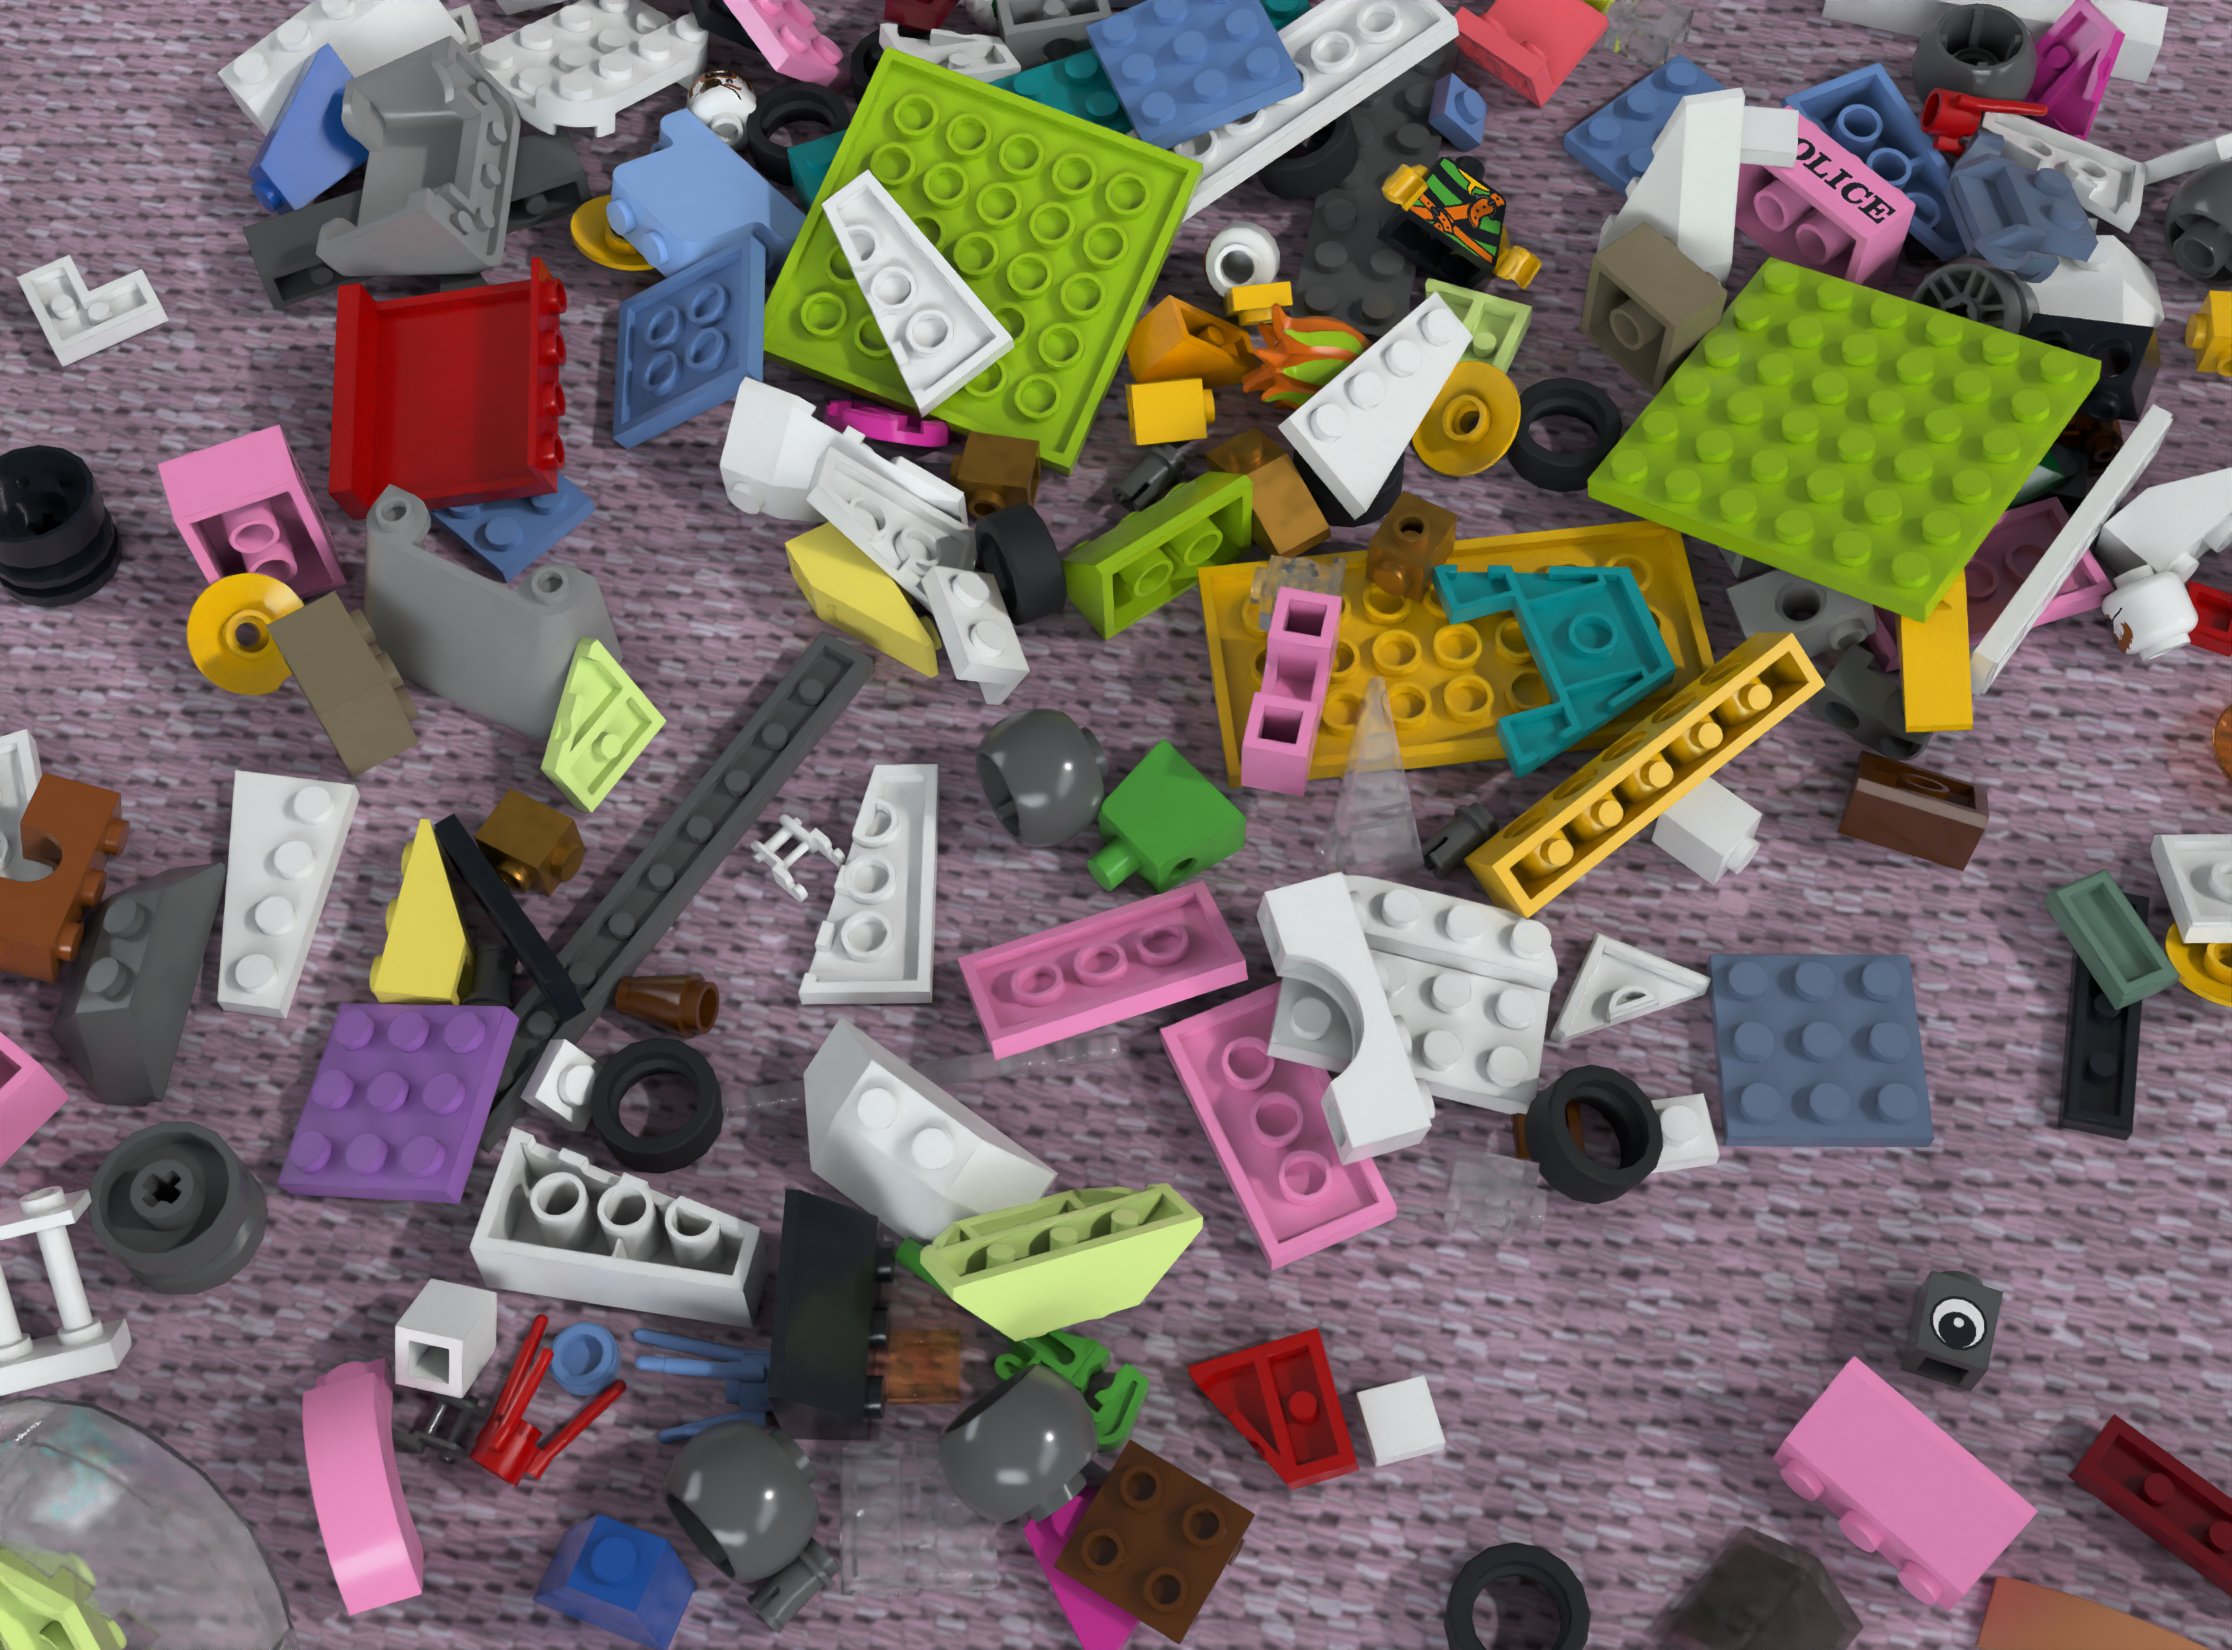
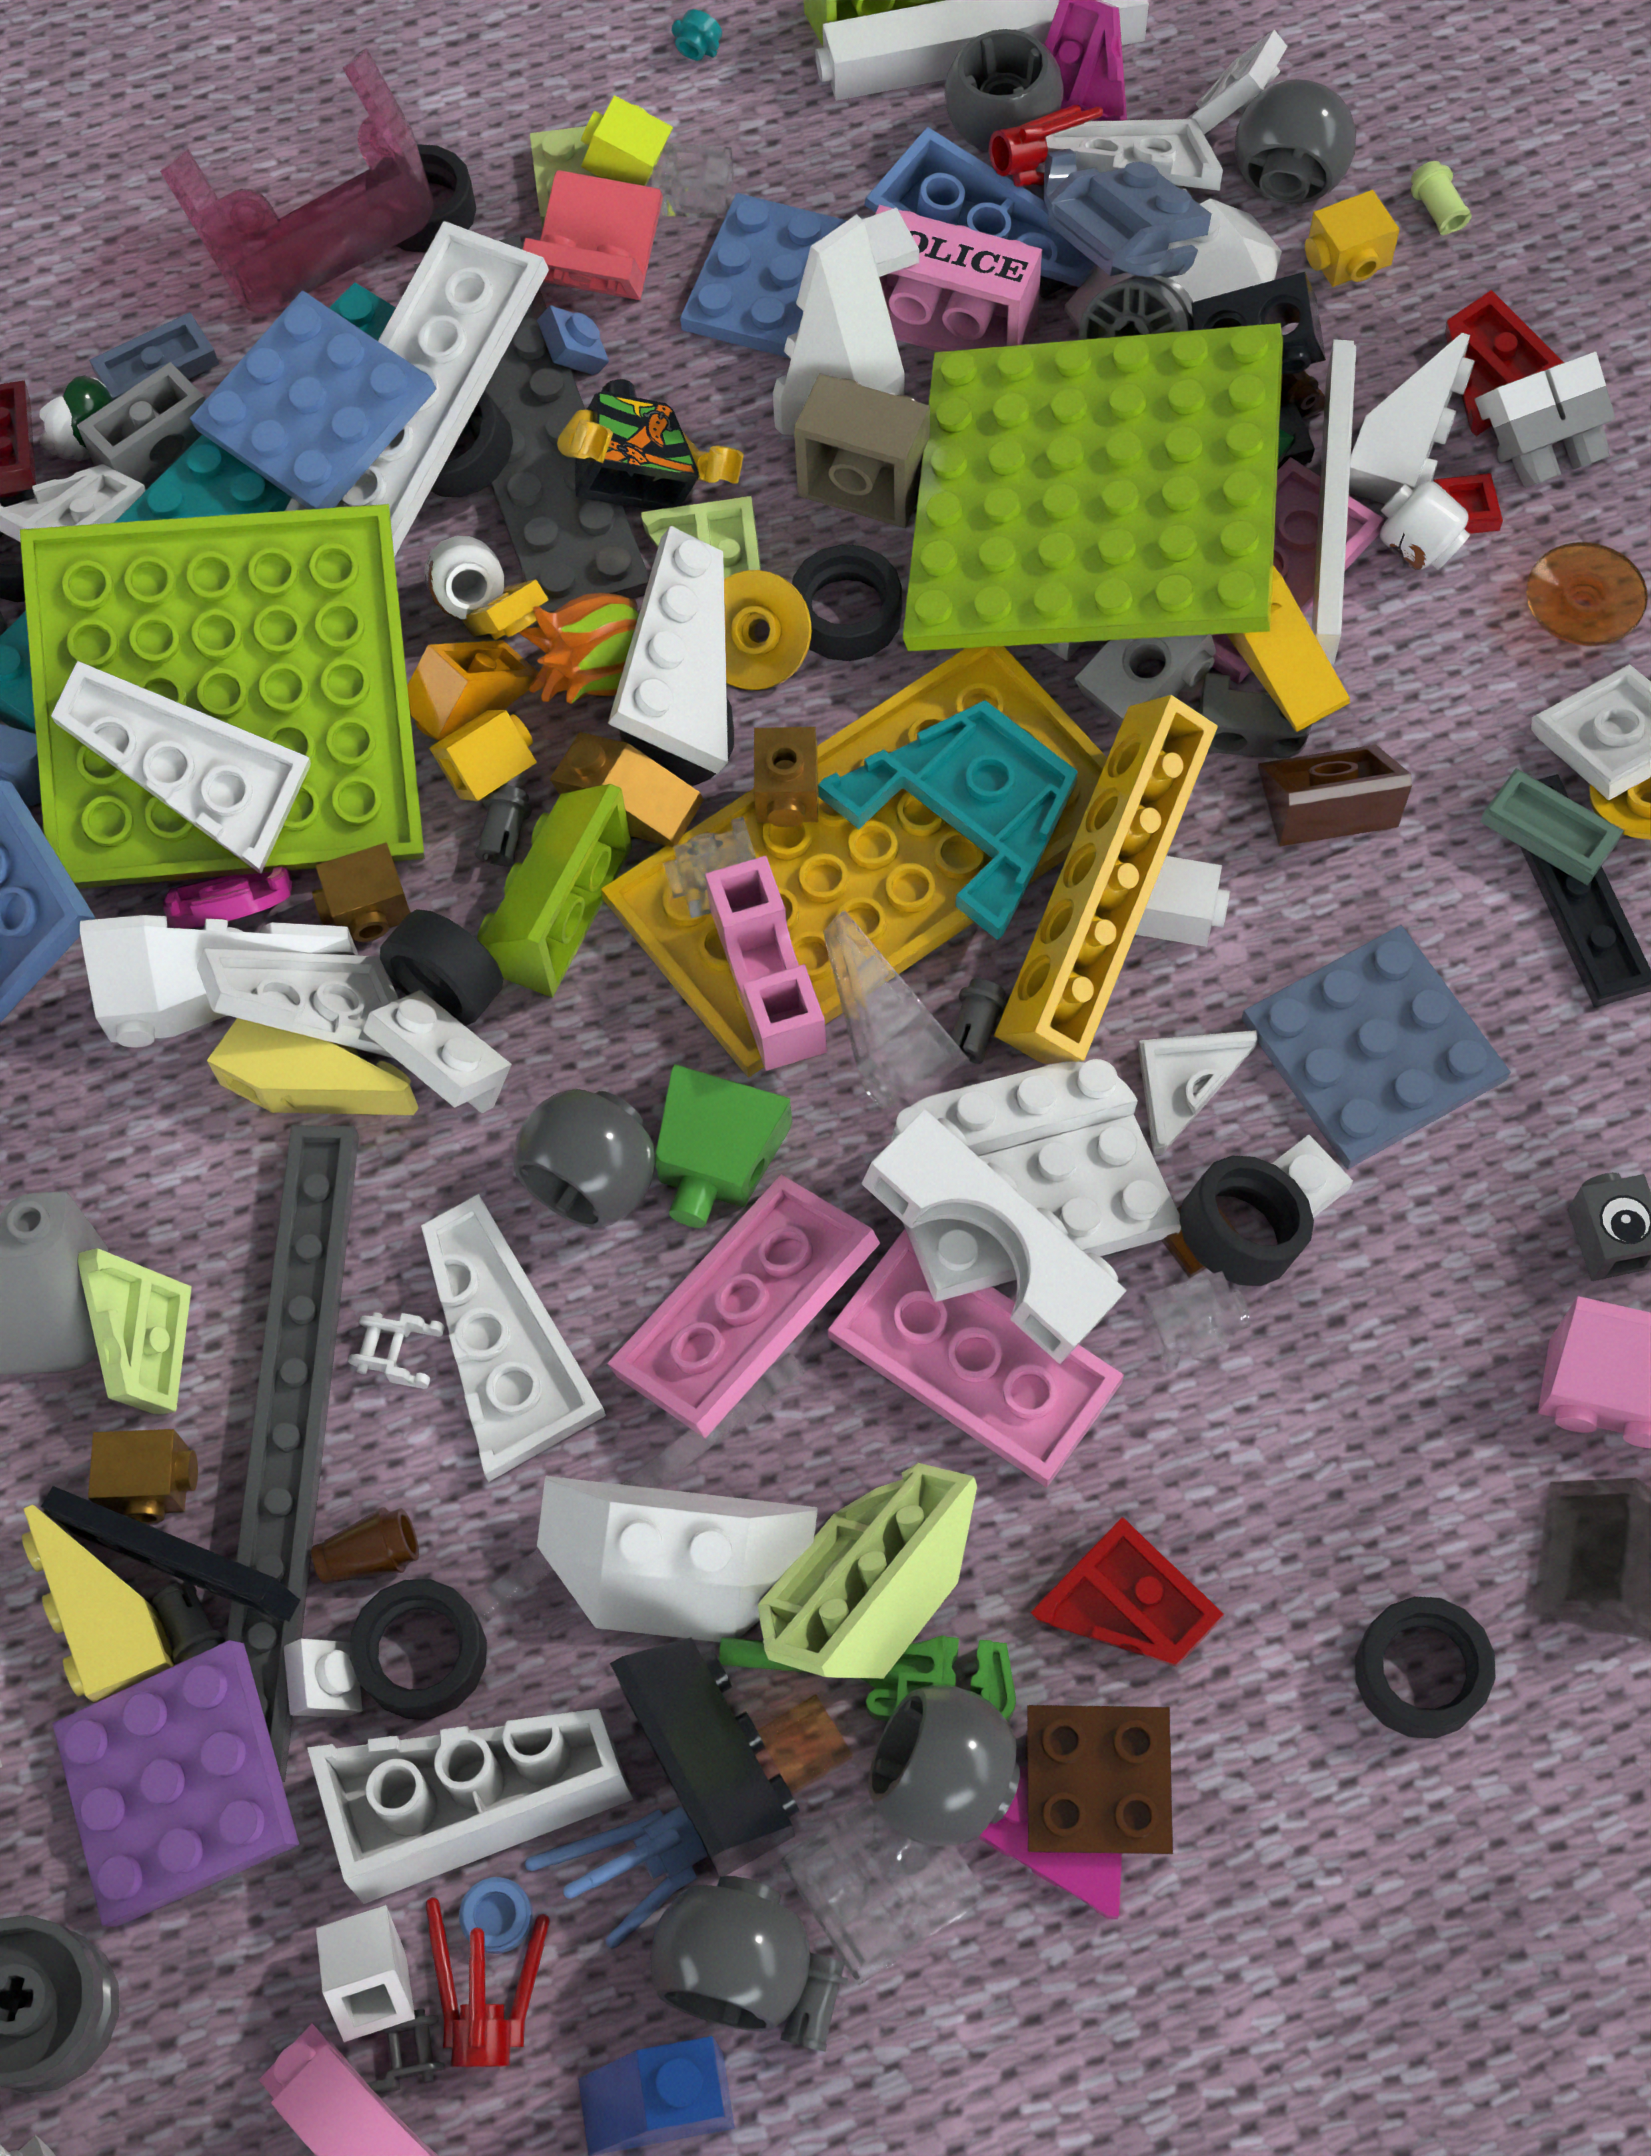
camera: 30 degrees left, 5 degrees up
(1400, 1421) = (1230, 1555): white tile -> none

